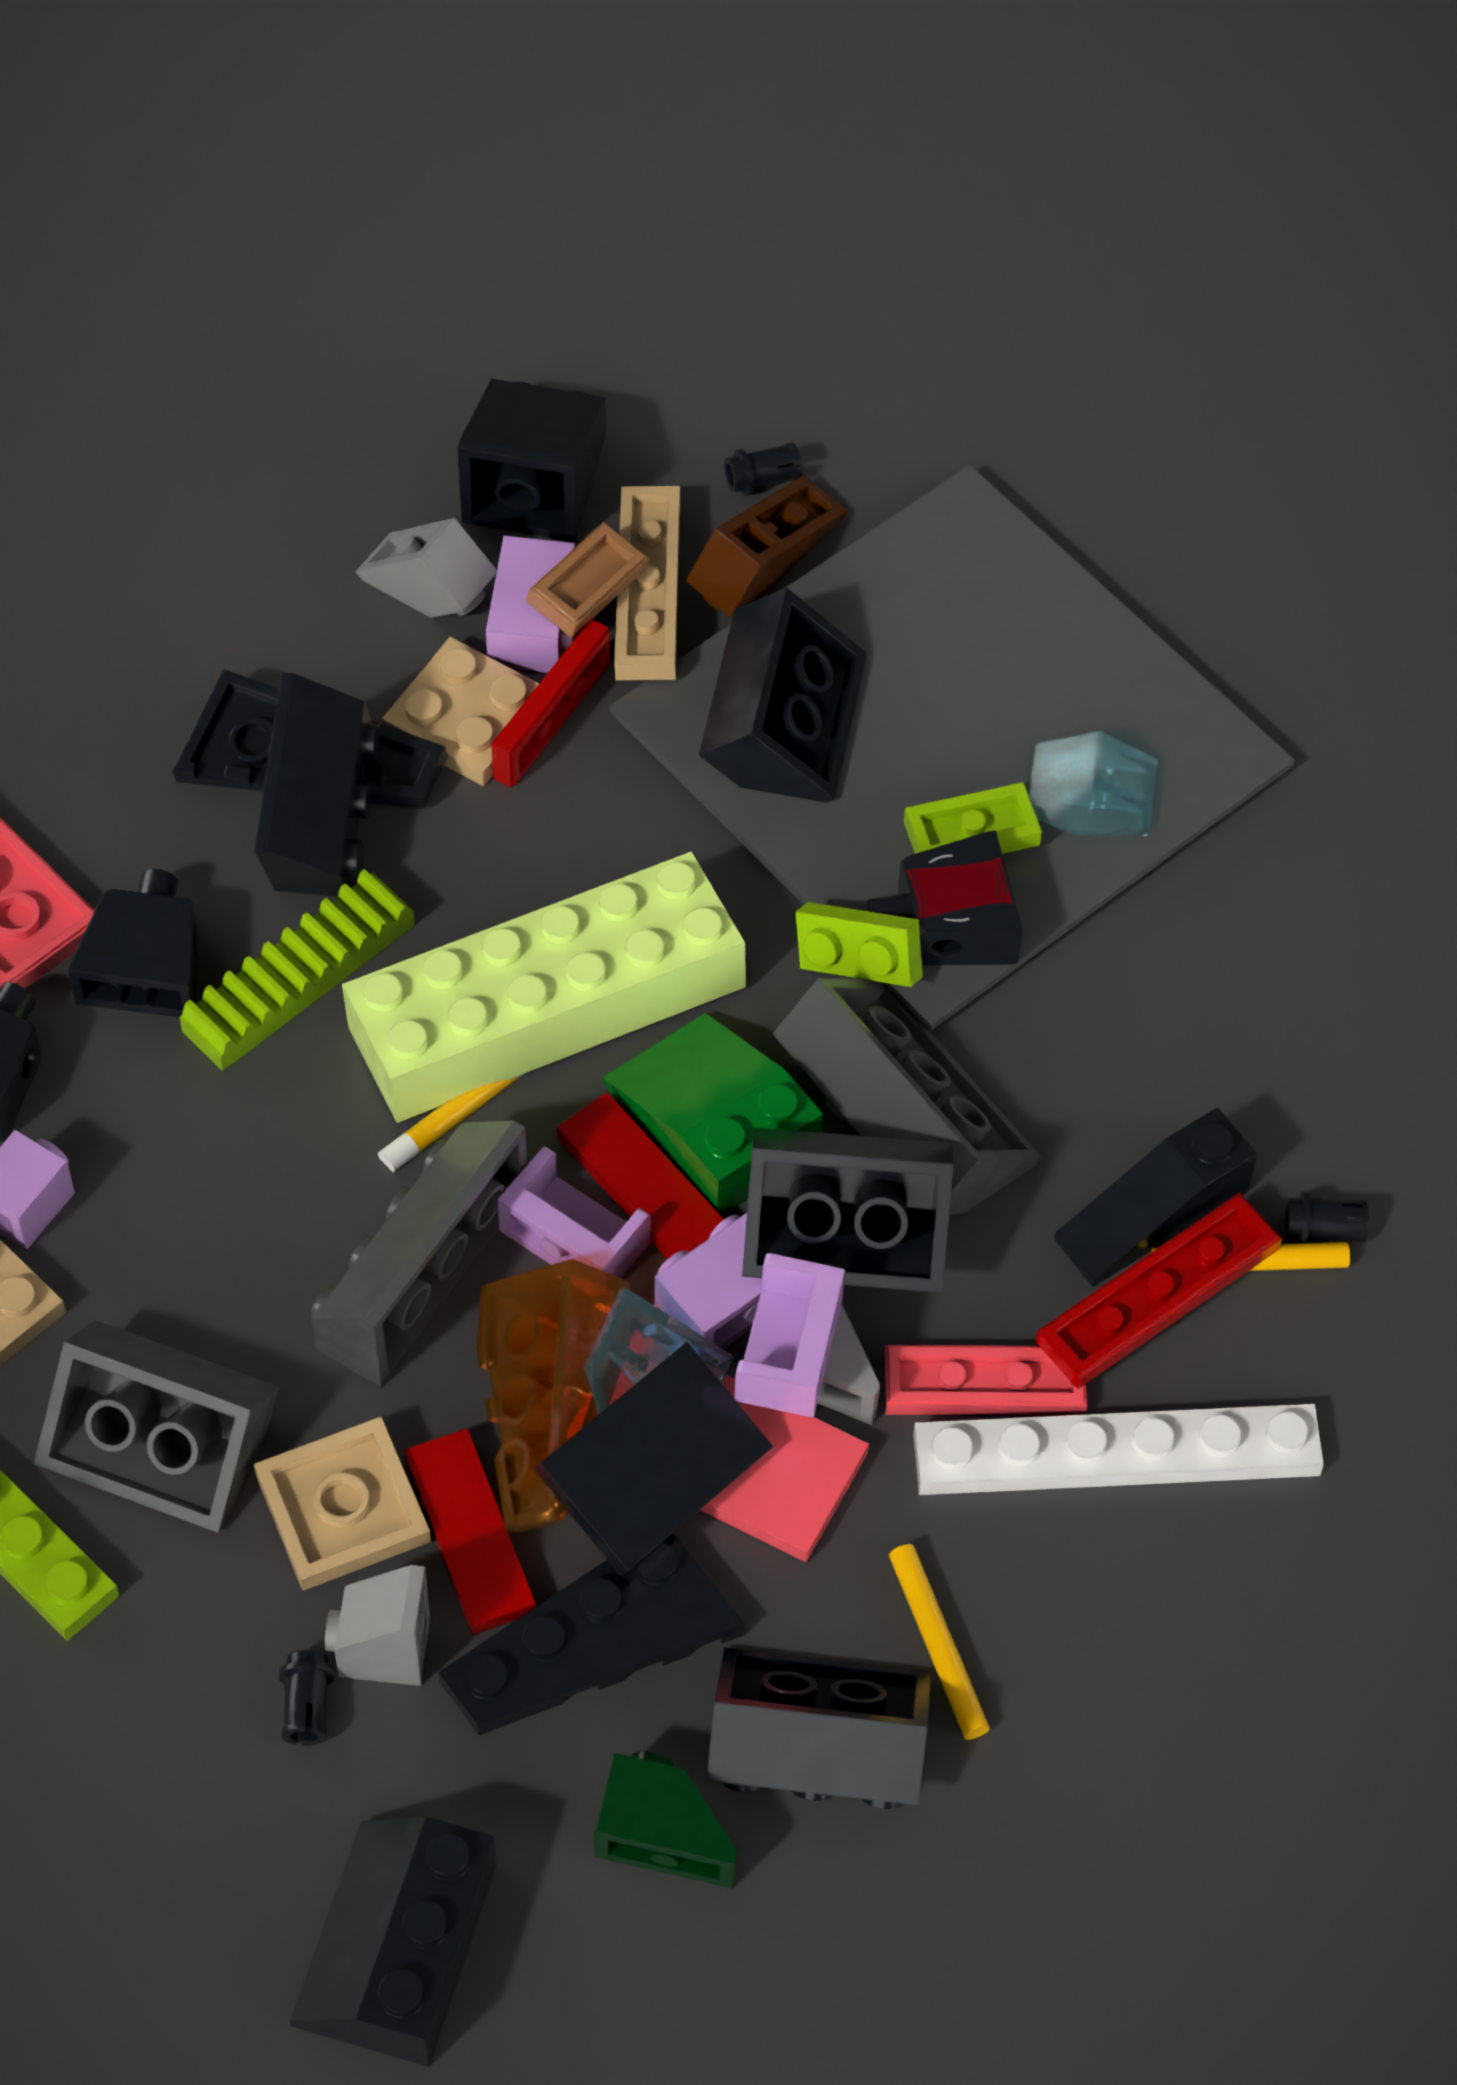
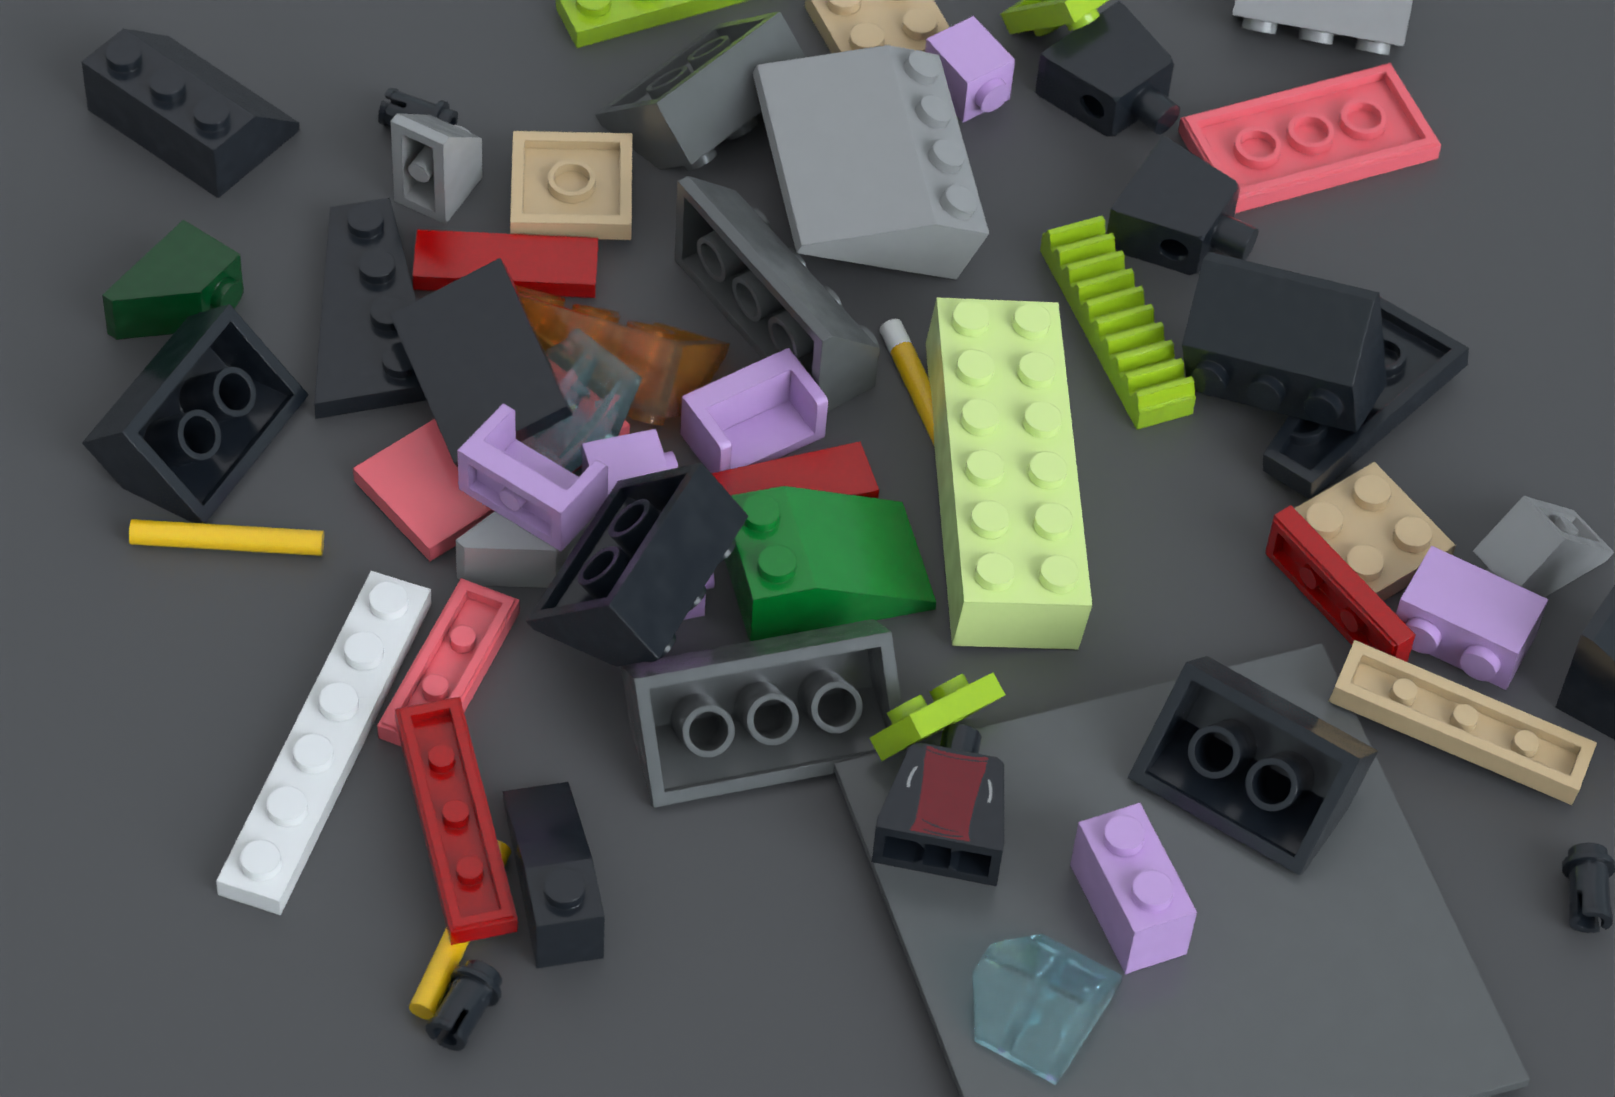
camera: 110 degrees right, 5 degrees down
(209, 1212) = (872, 159): none -> light grey slope
(587, 579) = (1462, 642): medium nougat tile -> none
(763, 544) = (1480, 845): reddish brown slope -> none
(960, 817) = (1036, 867): lime plate -> none
(964, 742) = (1133, 888): none -> lavender brick

